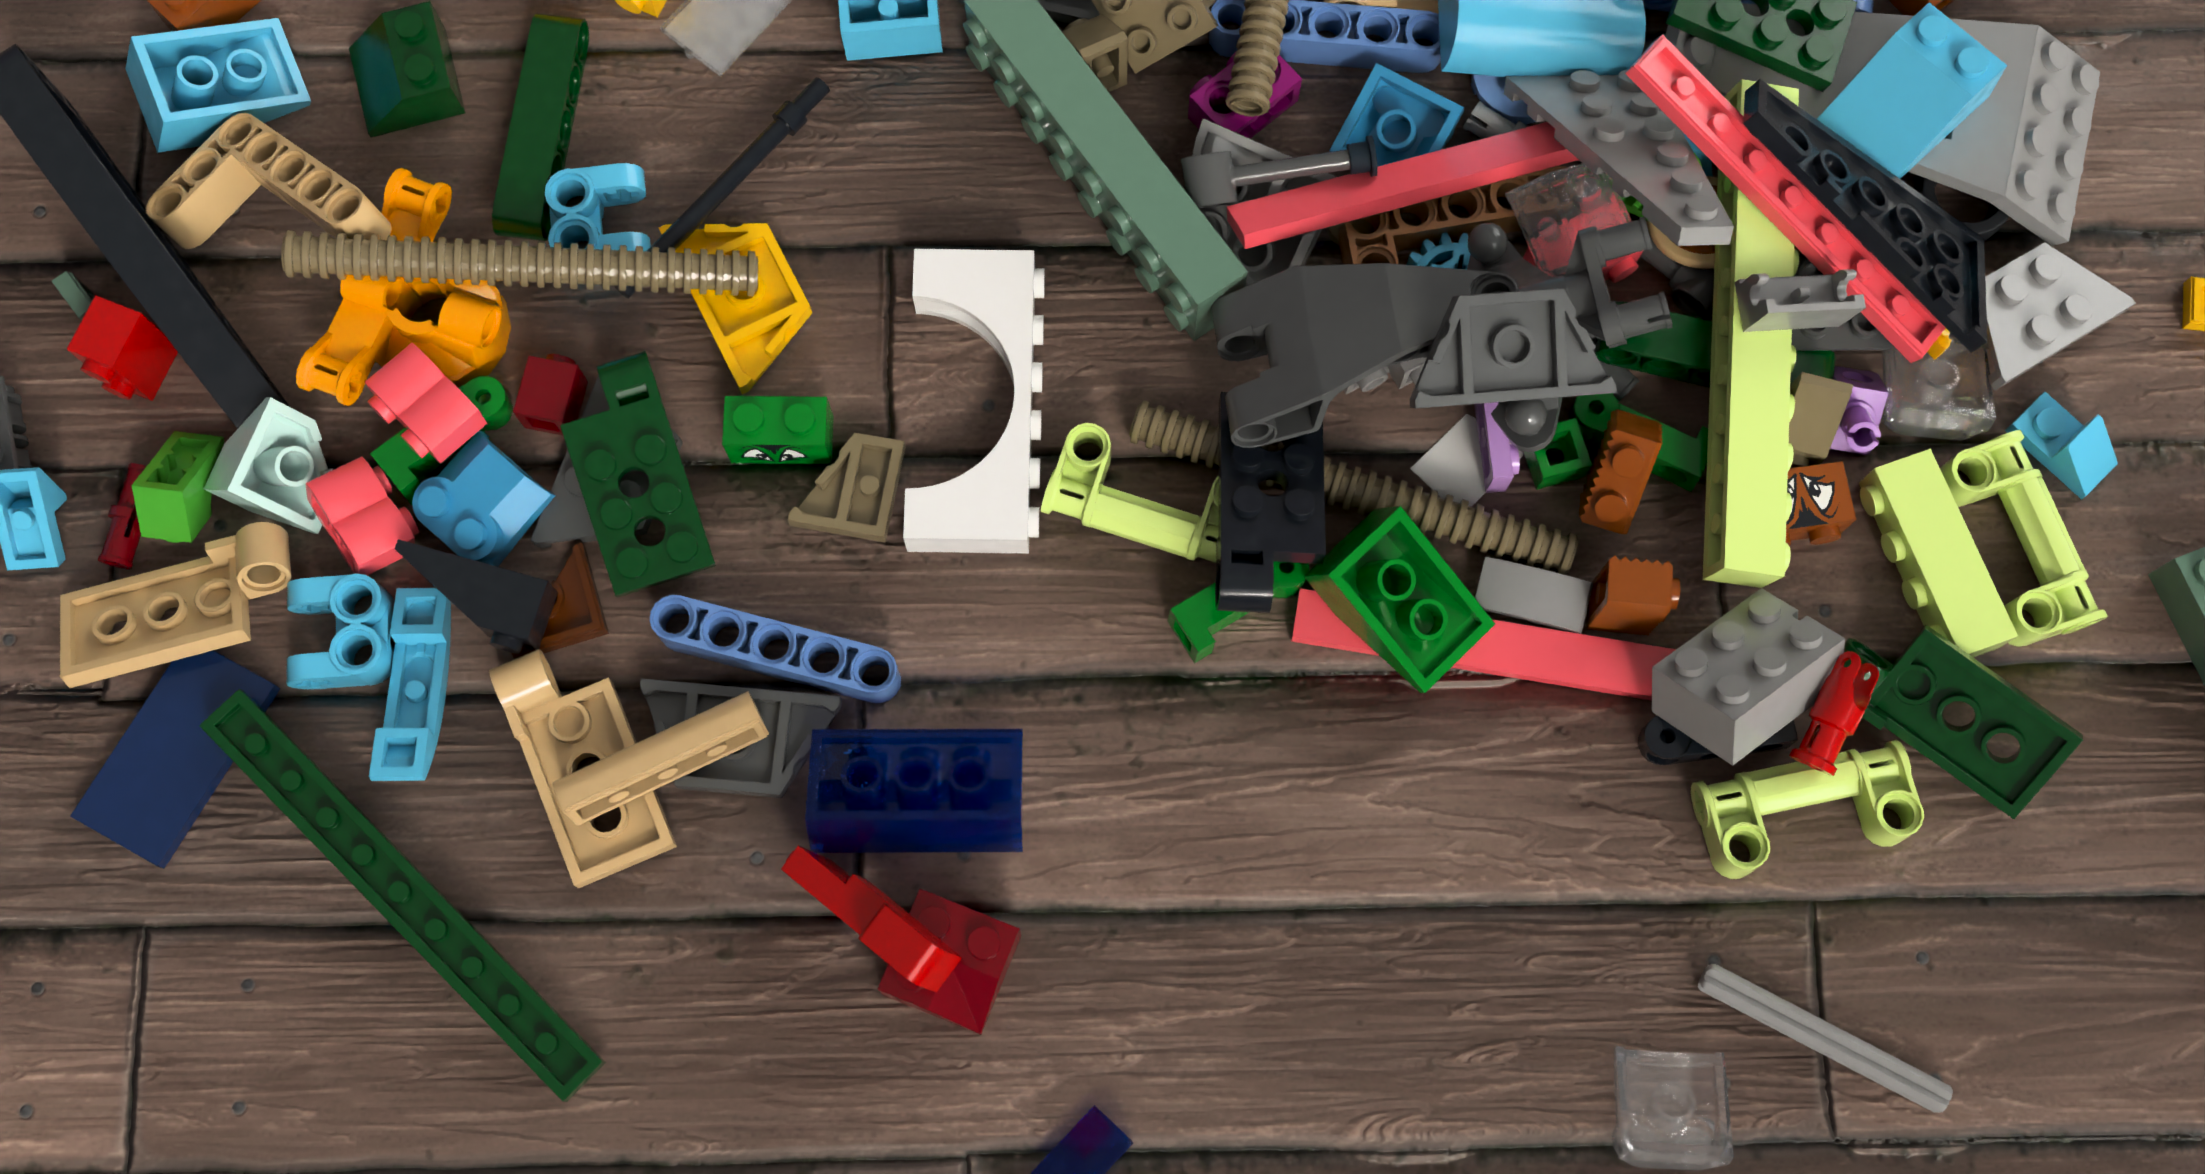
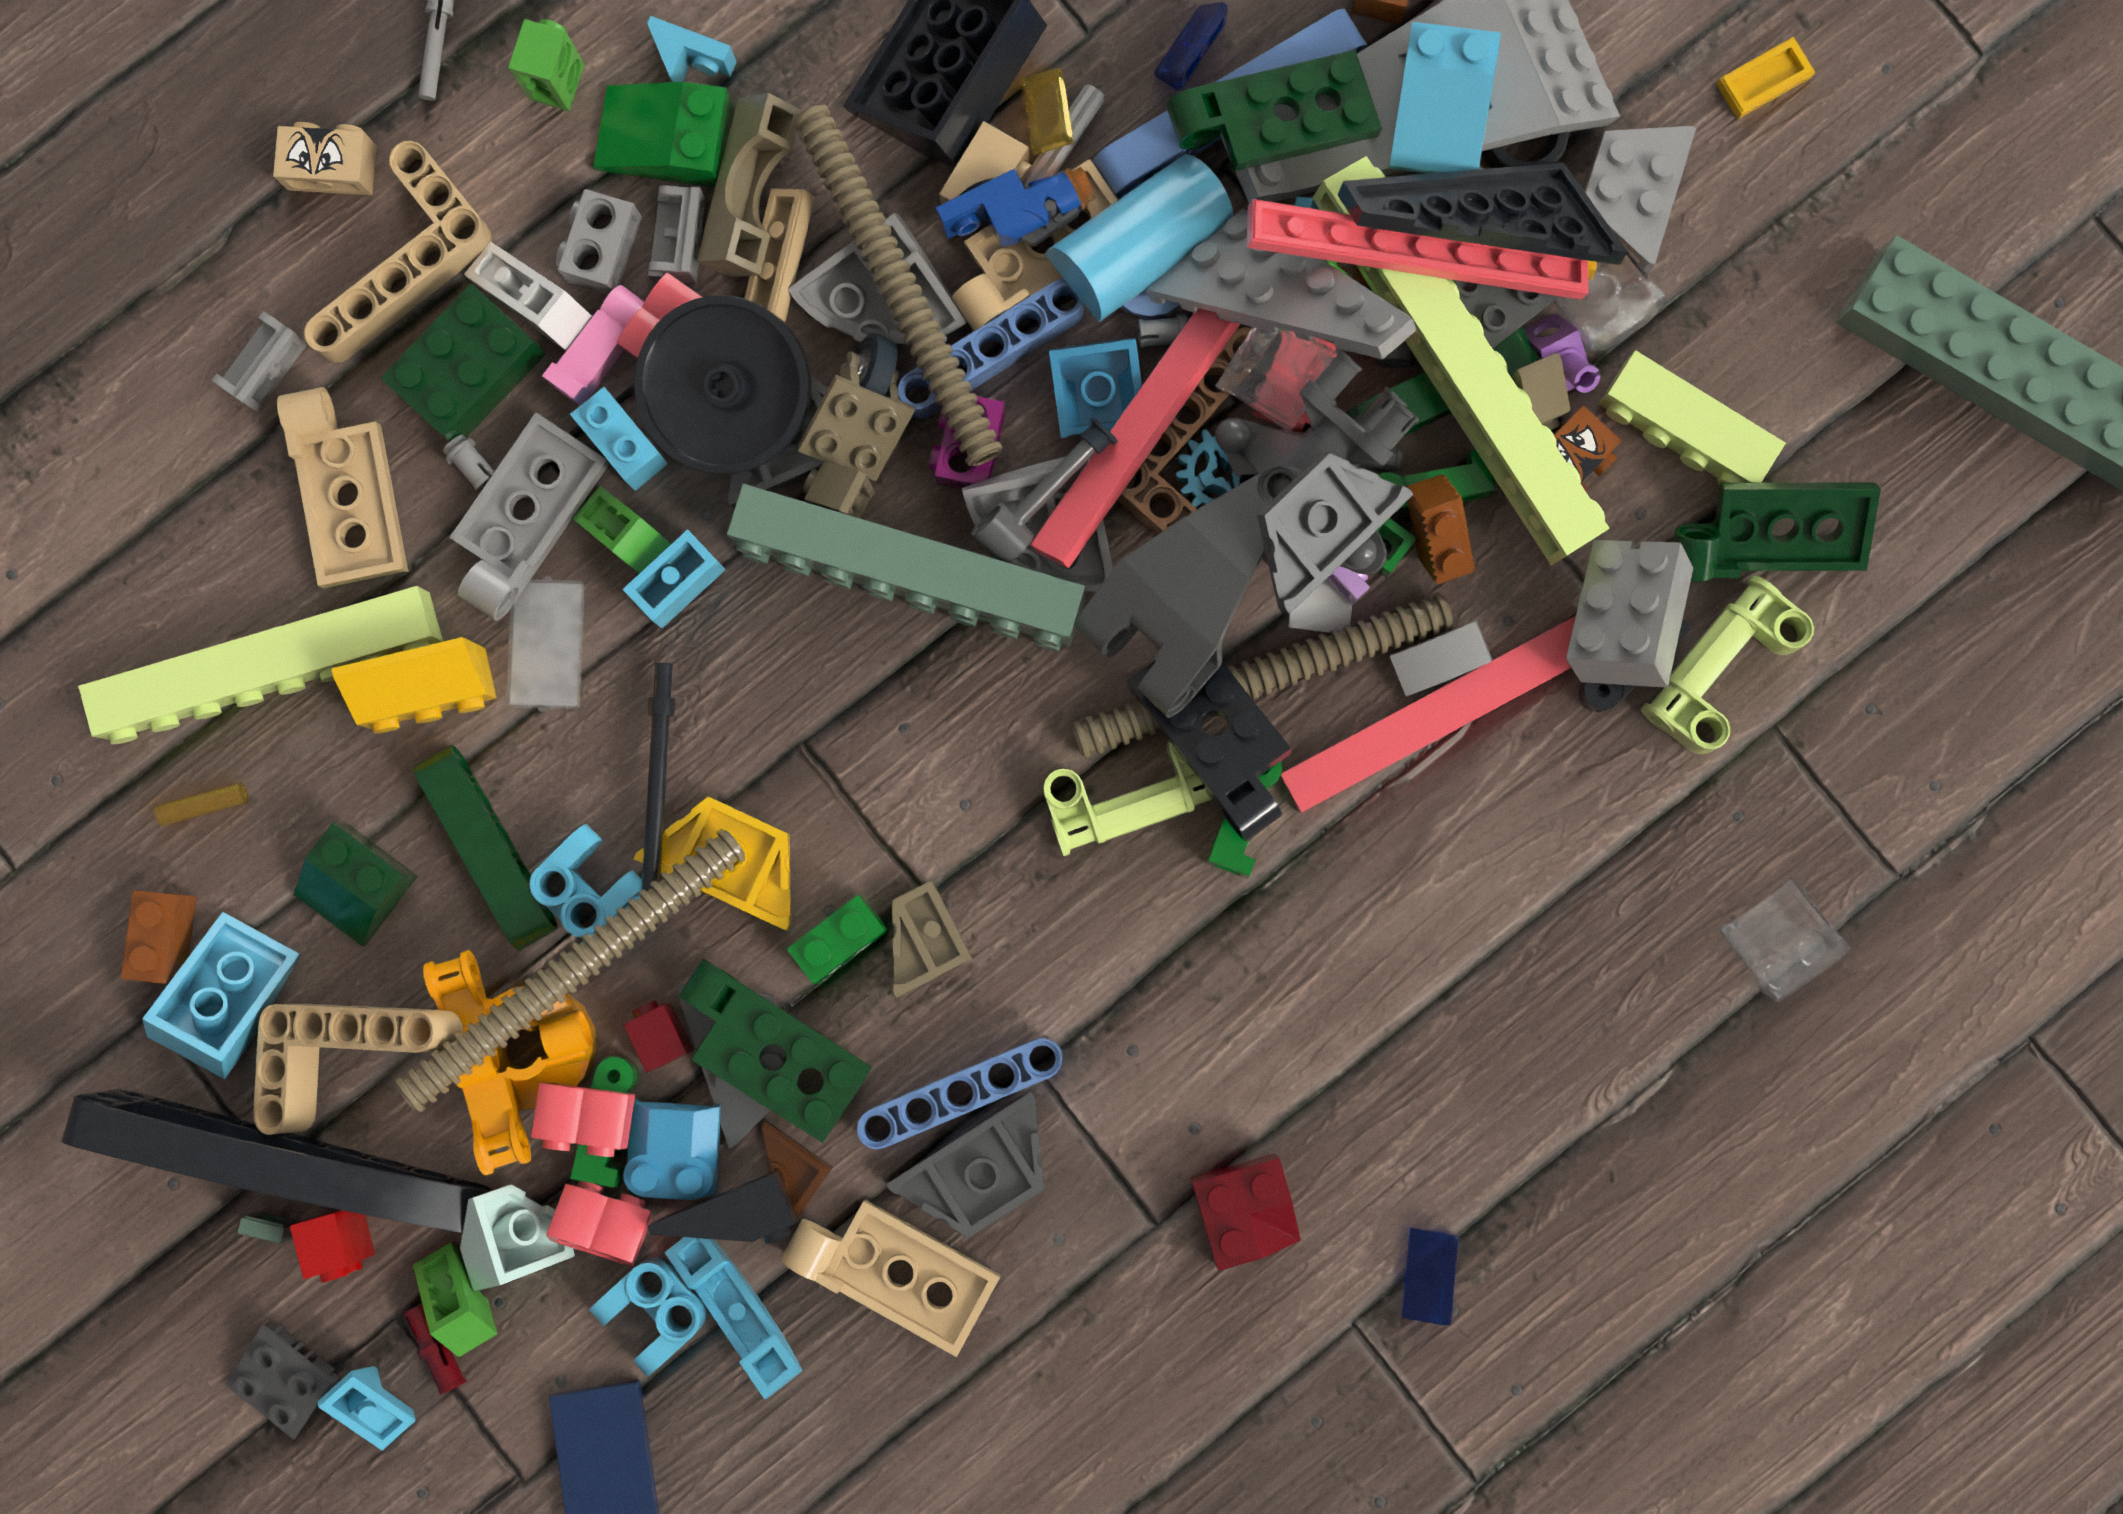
camera: 30 degrees left, 10 degrees up
(210, 602) = (552, 1368): tan hinge -> none
(403, 895) = (843, 1452): dark green plate -> none
(660, 759) = (947, 1231): tan brick -> none
(876, 918) = (1199, 1230): red piece -> none
(915, 790) = (1133, 1116): clear blue slope -> none
(990, 502) = (914, 727): white arch -> none
(1400, 597) = (1356, 732): green slope -> none
(1632, 596) = (1512, 612): dark orange brick -> none
(1797, 301) = (1479, 322): light grey hinge -> none
(1825, 1038) = (1846, 815): light grey axle -> none
(1836, 712) = (1708, 596): red piece -> none
(2063, 598) = (1794, 387): yellowish green piece -> none
(2069, 450) = (1717, 271): medium azure slope -> none

